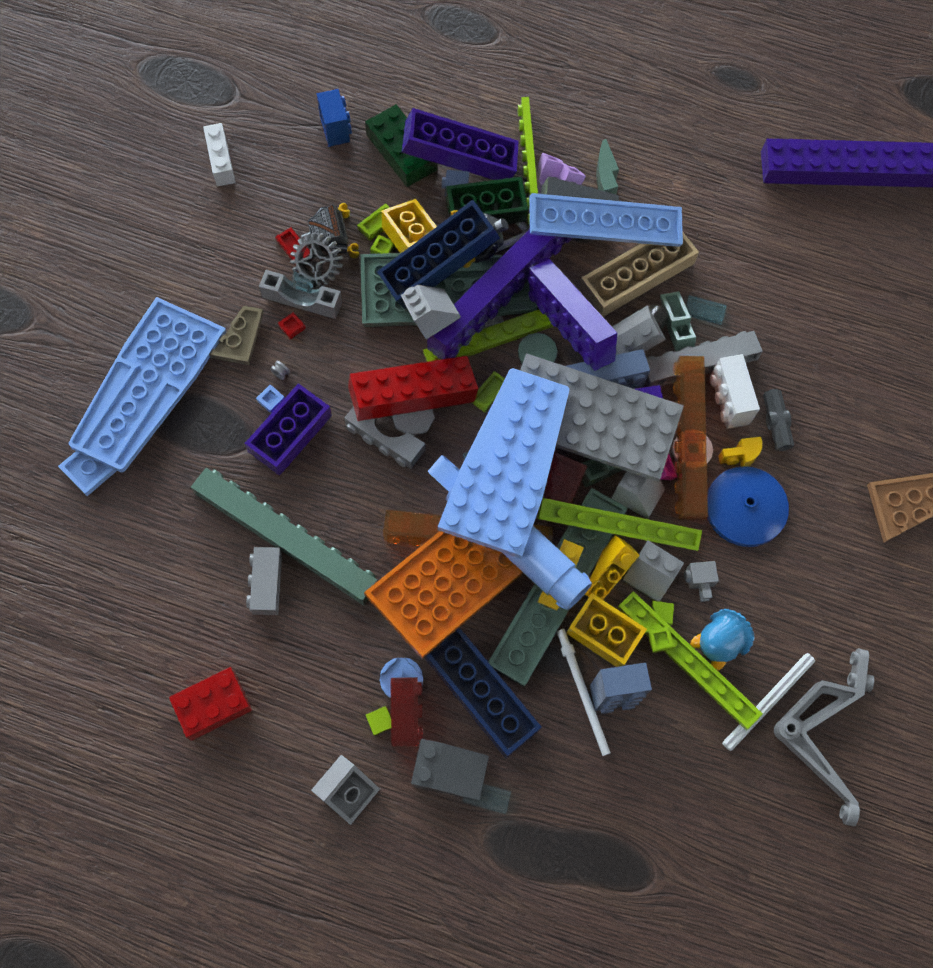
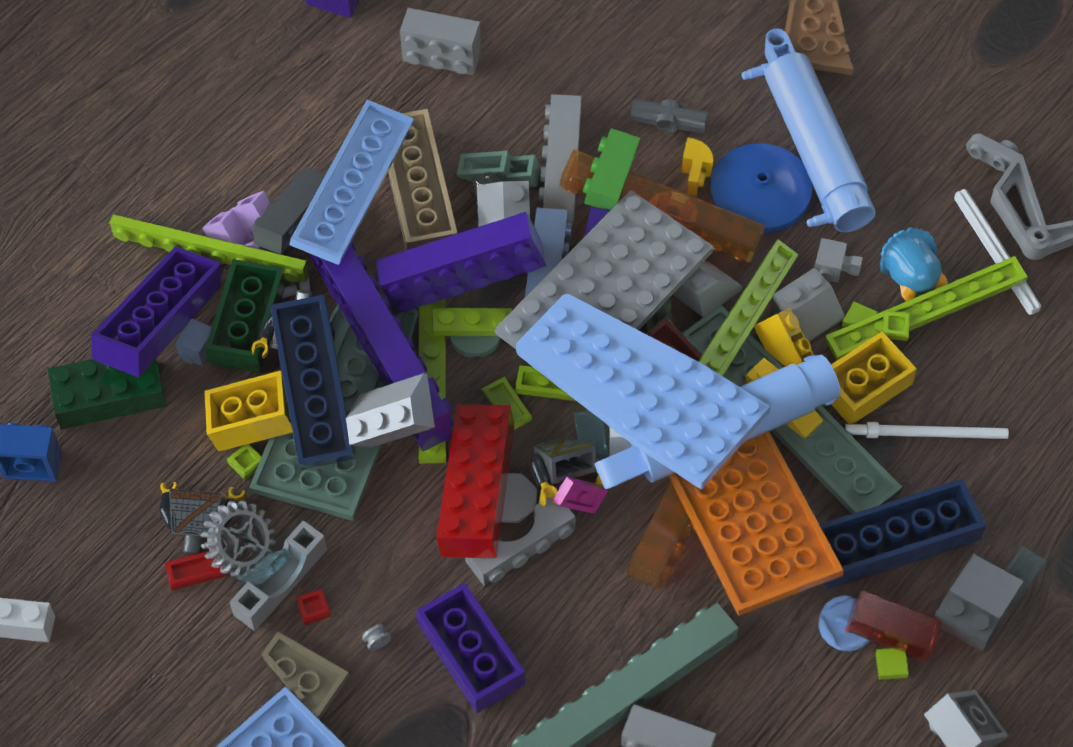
camera: 65 degrees left, 10 degrees down
(270, 398) = (413, 661): light blue plate -> none
(372, 224) = (204, 456): lime tile -> none
(424, 456) = (580, 495): none -> dark pink plate
(448, 437) = (561, 459): none -> torso
(539, 339) = (467, 321): none -> lime plate
(606, 169) = (257, 170): sand green slope -> none
(620, 687) = (948, 376): sand blue brick -> none
(695, 386) = (610, 169): none -> bright green brick
(705, 309) = (496, 135): clear light blue tile -> none
(734, 391) = (647, 129): white brick -> none
(764, 242) = (440, 41): none -> light grey brick
(807, 529) = (815, 135): none -> light blue piece

